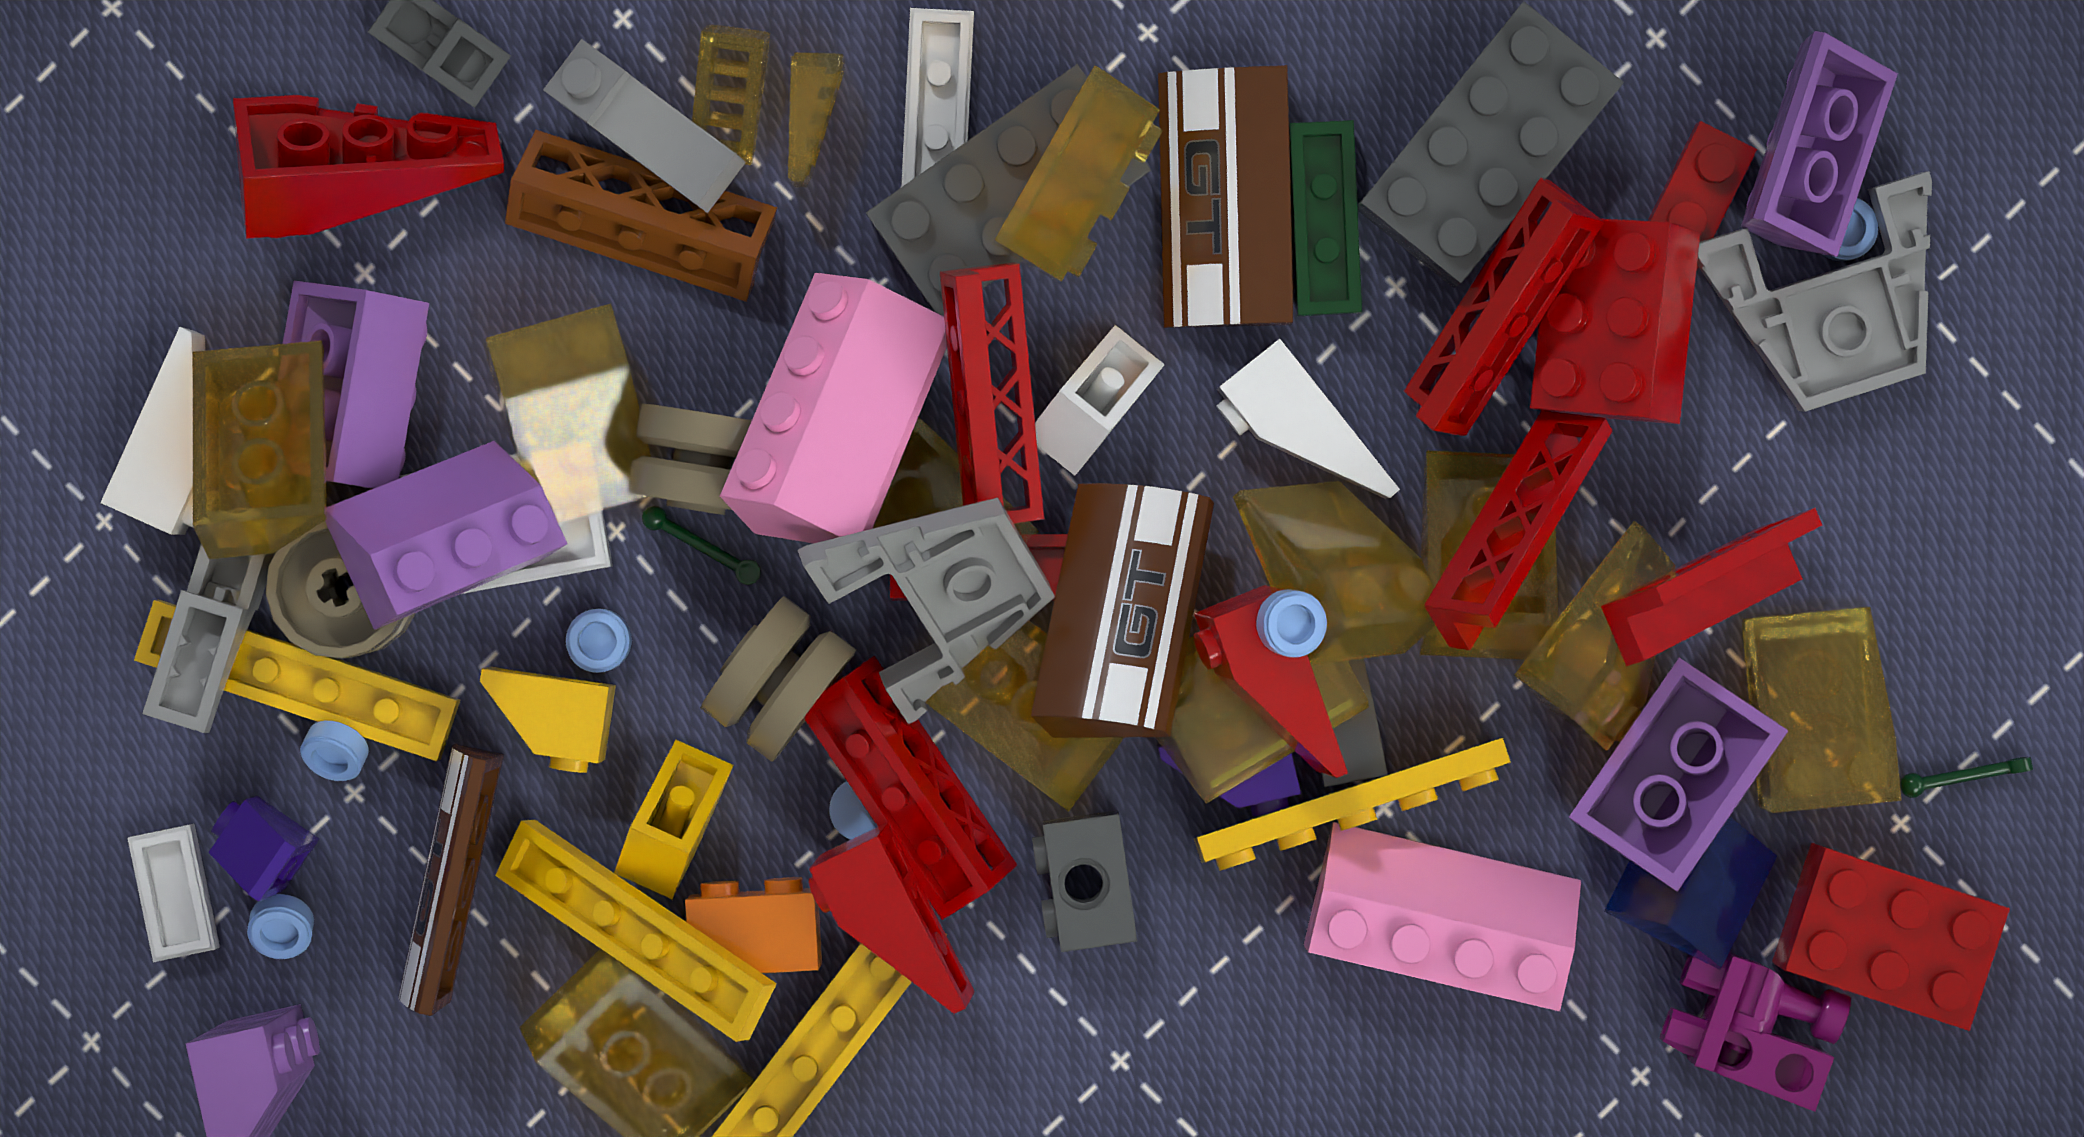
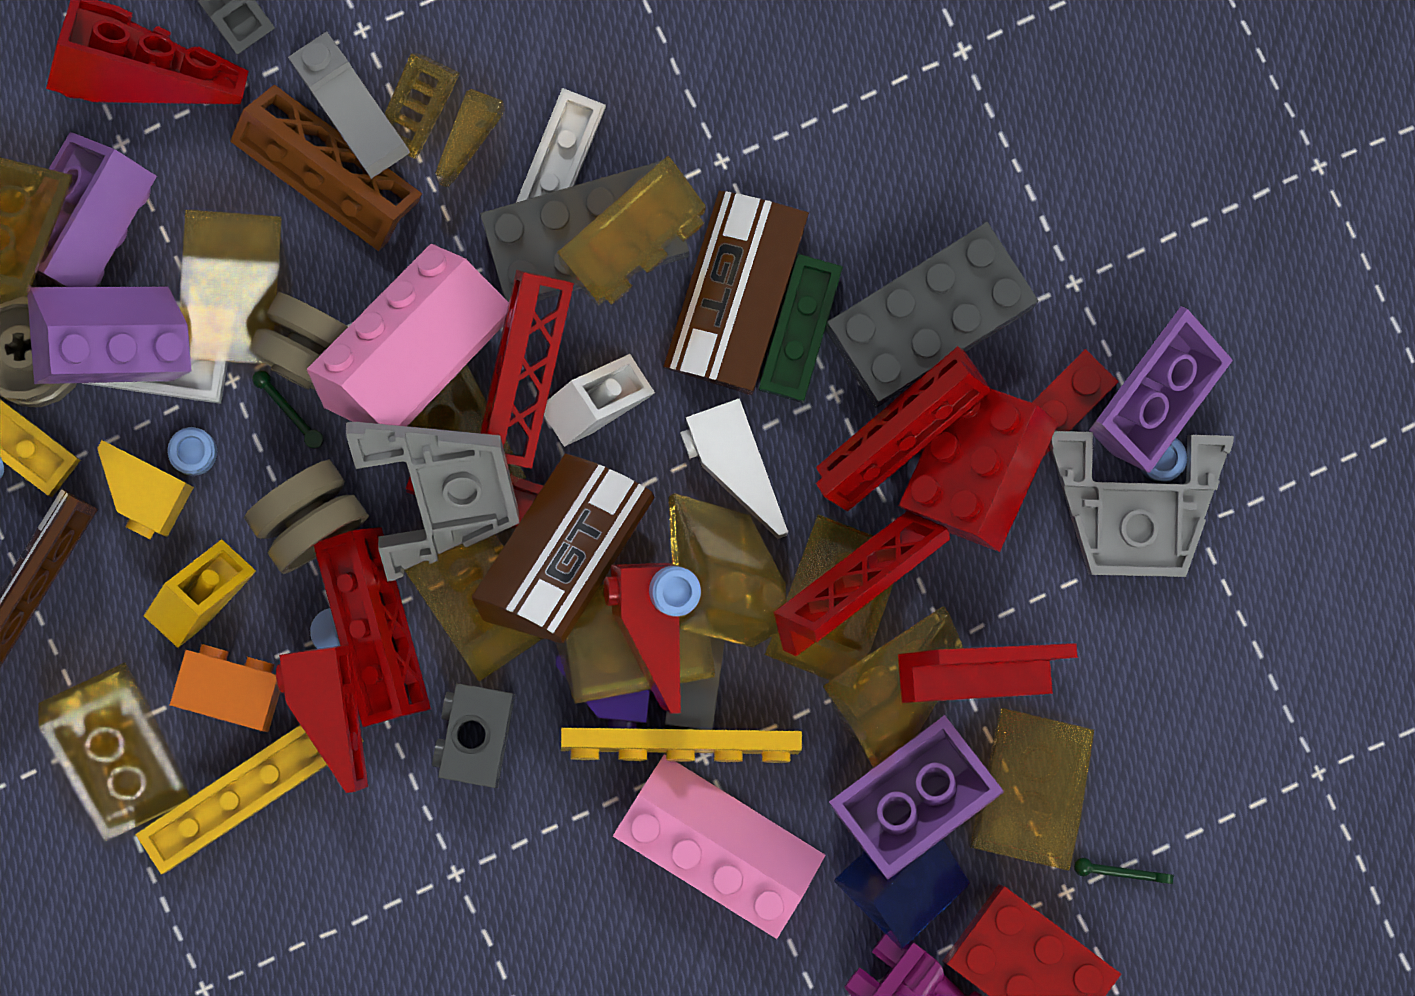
camera: 15 degrees right, 5 degrees down
(636, 930) = (143, 659): yellow plate -> none

